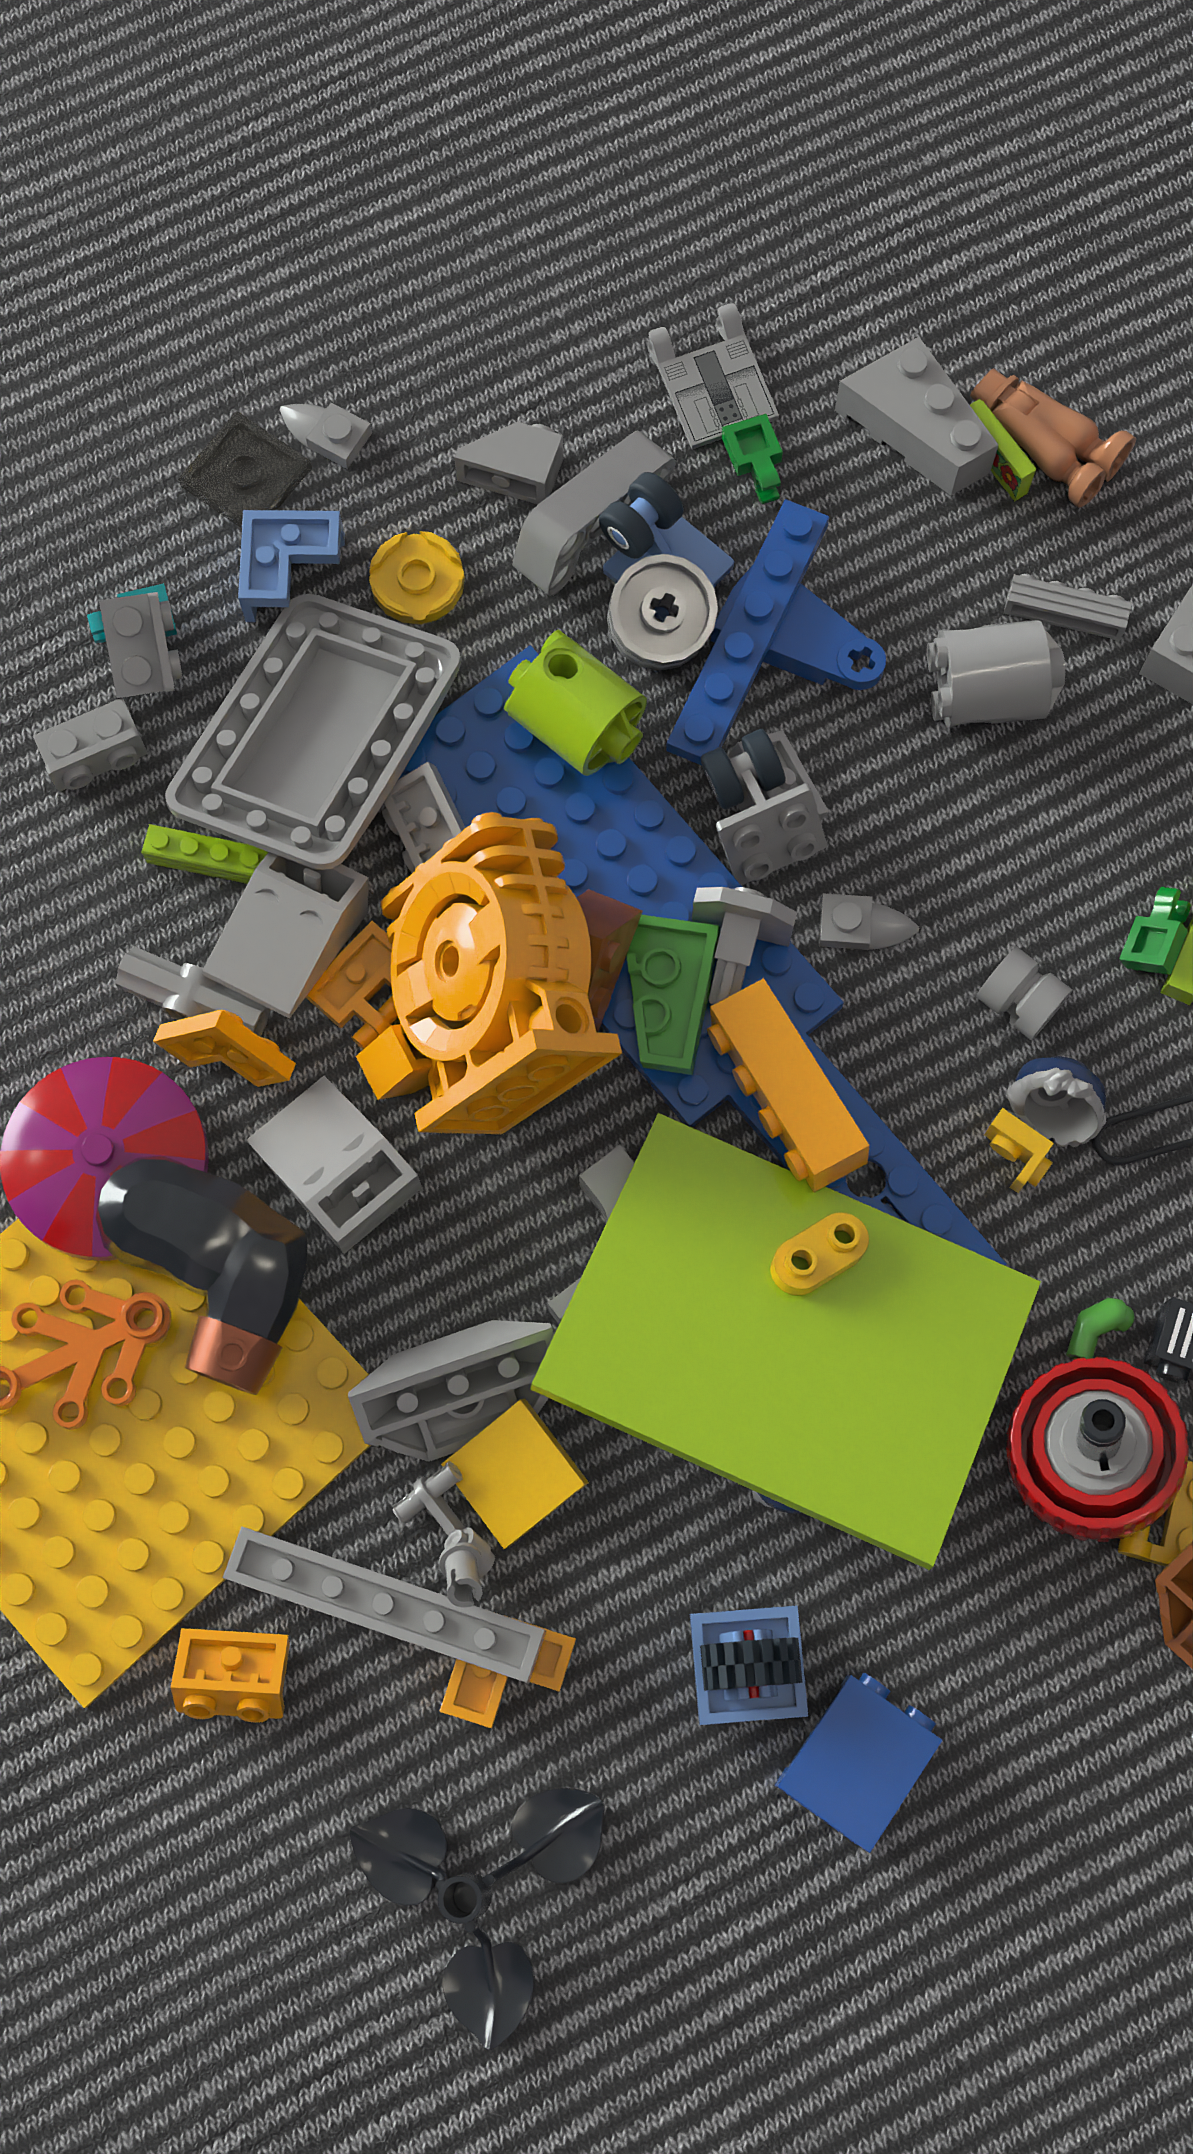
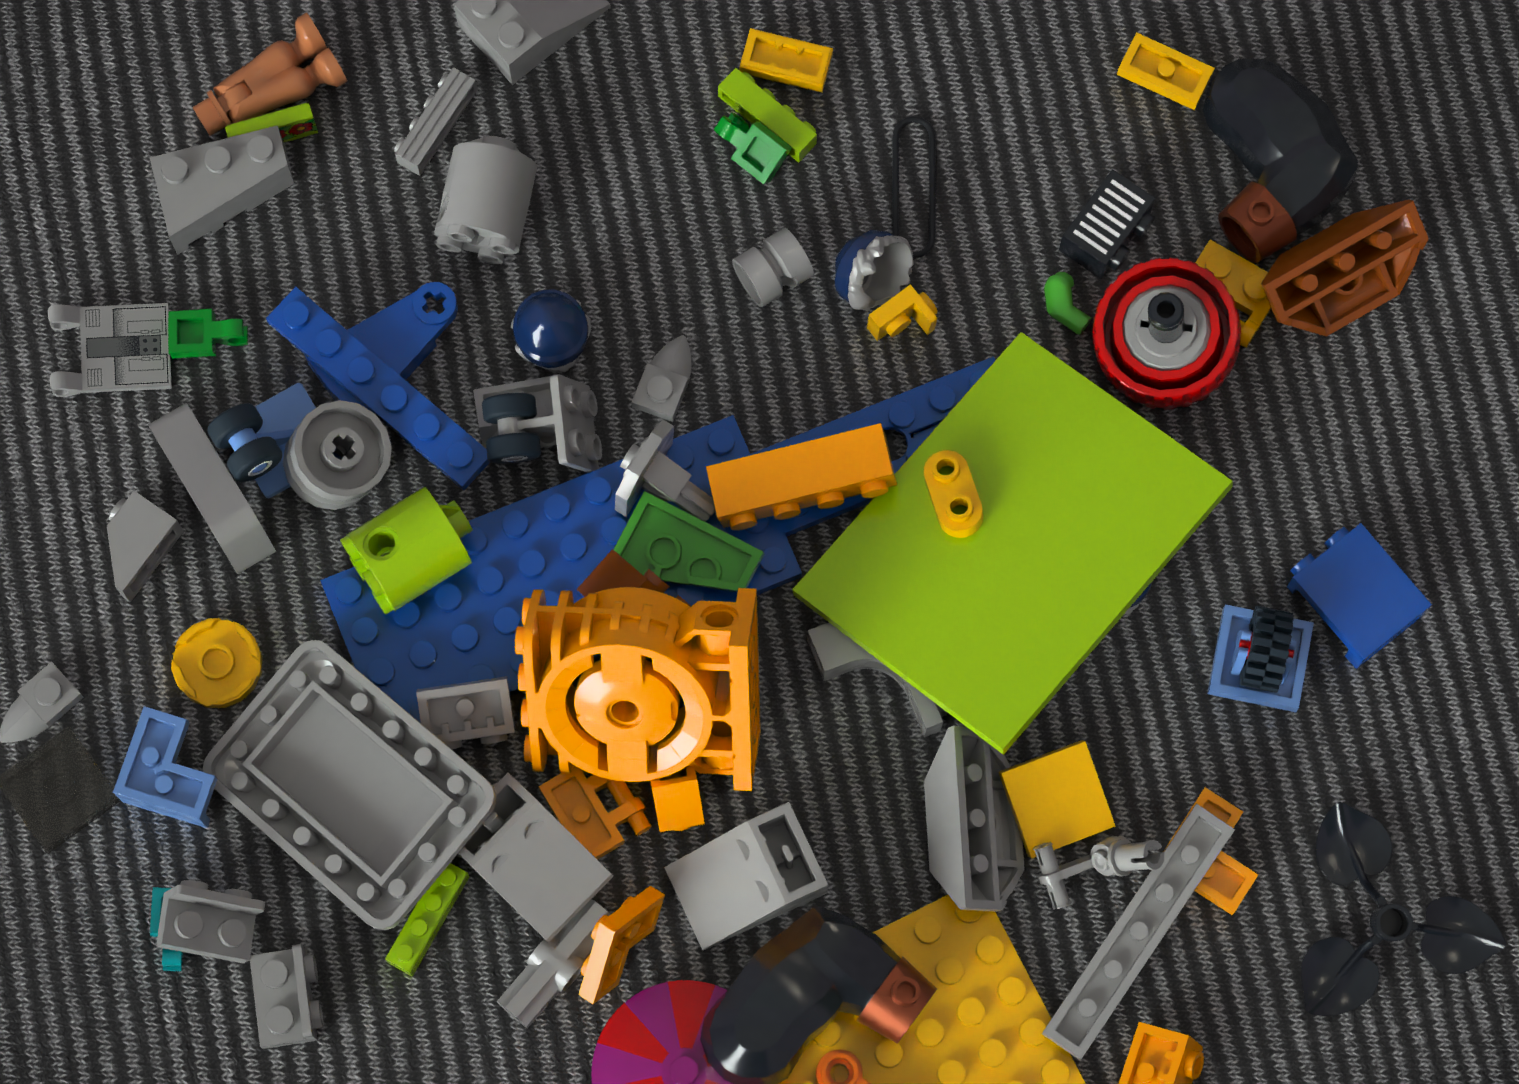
camera: 75 degrees left, 0 degrees up
(874, 787) = (551, 330): none -> dark blue hair

